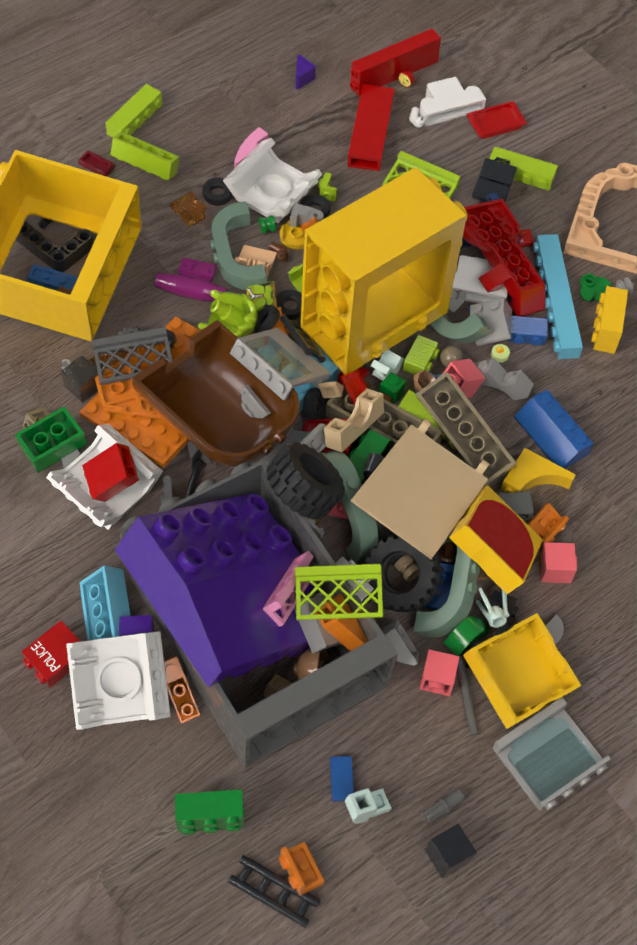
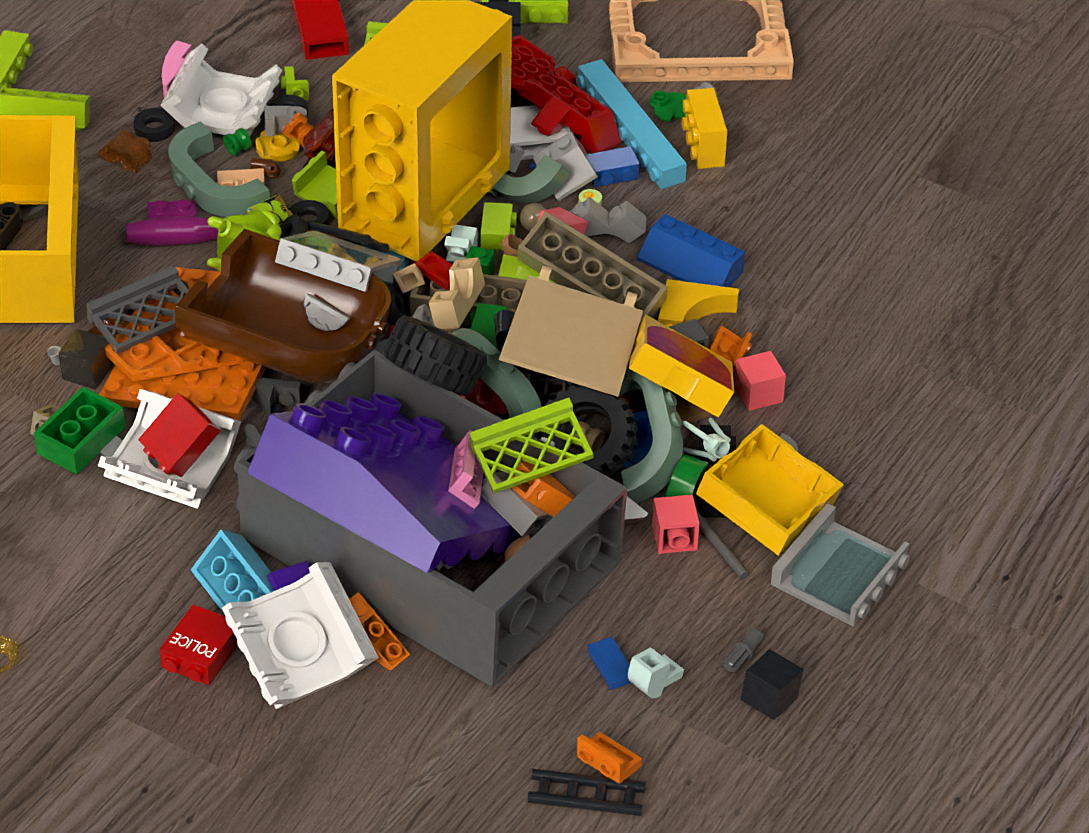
camera: 20 degrees left, 15 degrees down
(209, 811) = (474, 731): green brick -> none

